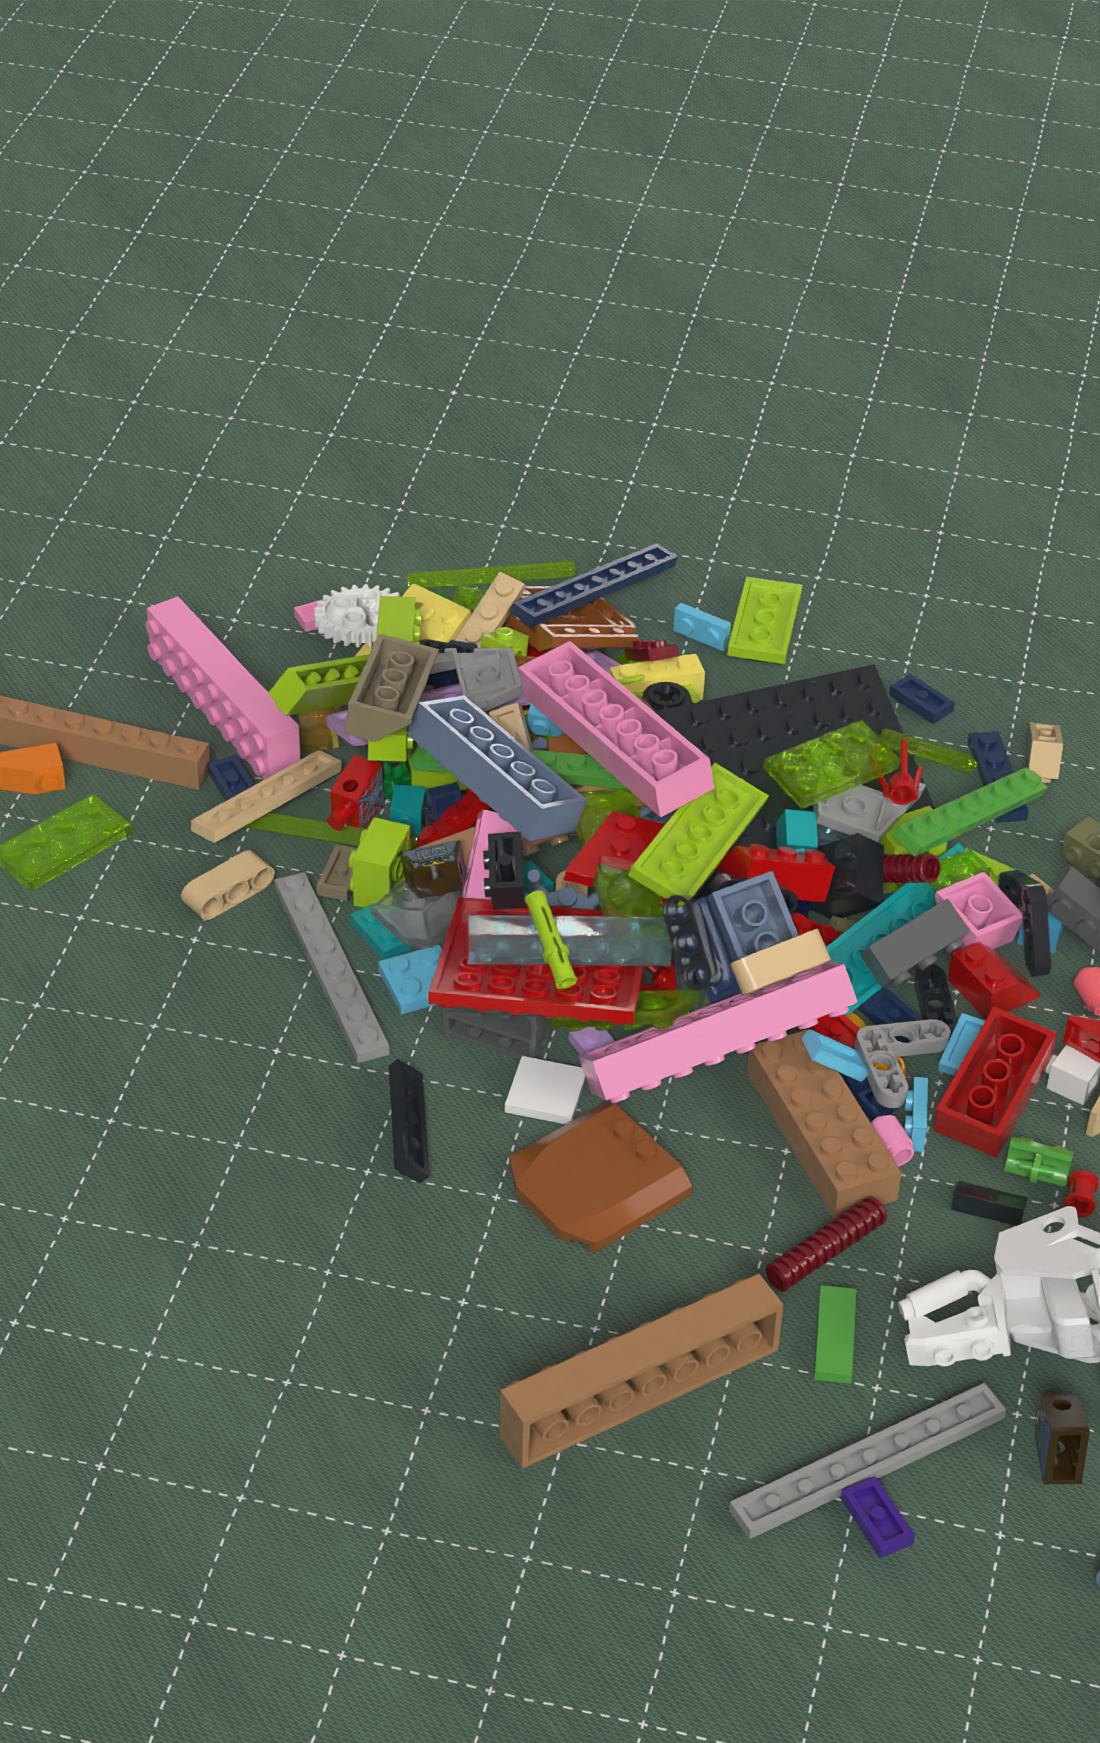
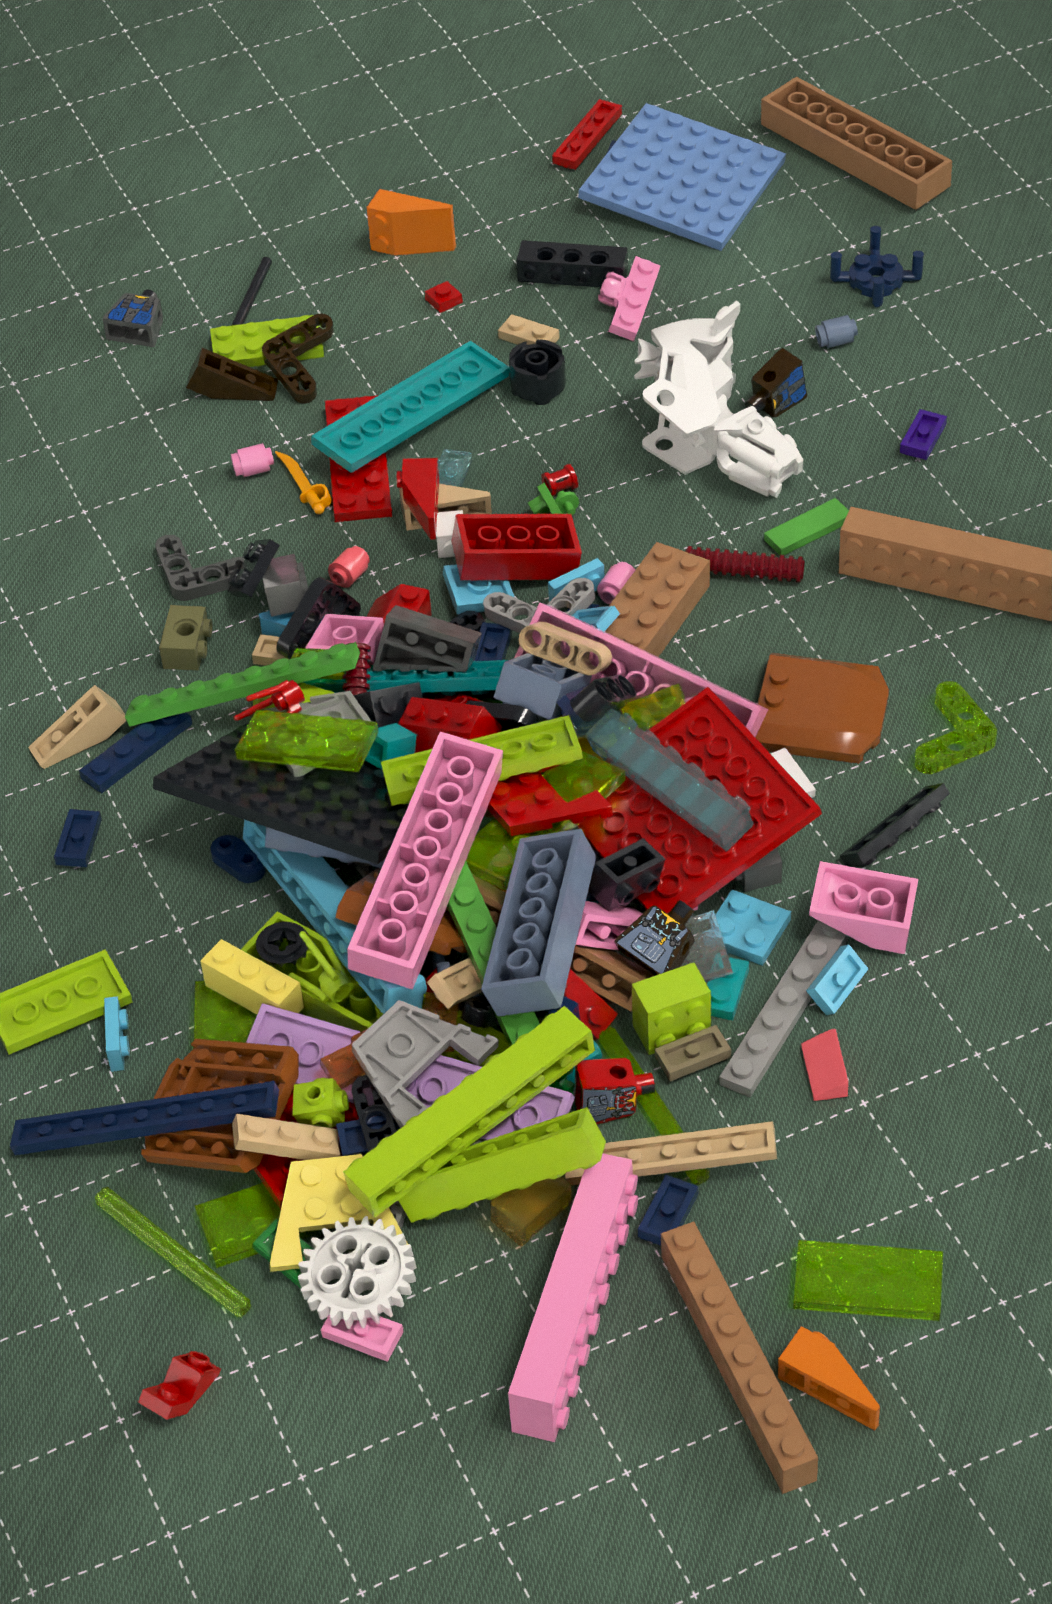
camera: 125 degrees left, 5 degrees up
(227, 885) = (794, 1111): tan beam -> none
(243, 934) = (825, 1066): none -> coral slope
(305, 982) = (837, 979): none -> medium azure plate
(341, 1027) = (865, 905): none -> bright pink slope
(384, 529) = (182, 1387): none -> red slope
(389, 688) = (537, 1027): dark tan slope -> none
(458, 1253) = (965, 732): none -> clear neon green beam
(555, 951) = (706, 751): lime pin -> none
(651, 650) = (225, 994): dark red plate -> none
(865, 1459) = (894, 459): light grey plate -> none
(927, 751) = (199, 737): clear neon green axle -> none
(989, 1203) = (613, 519): black slope -> none

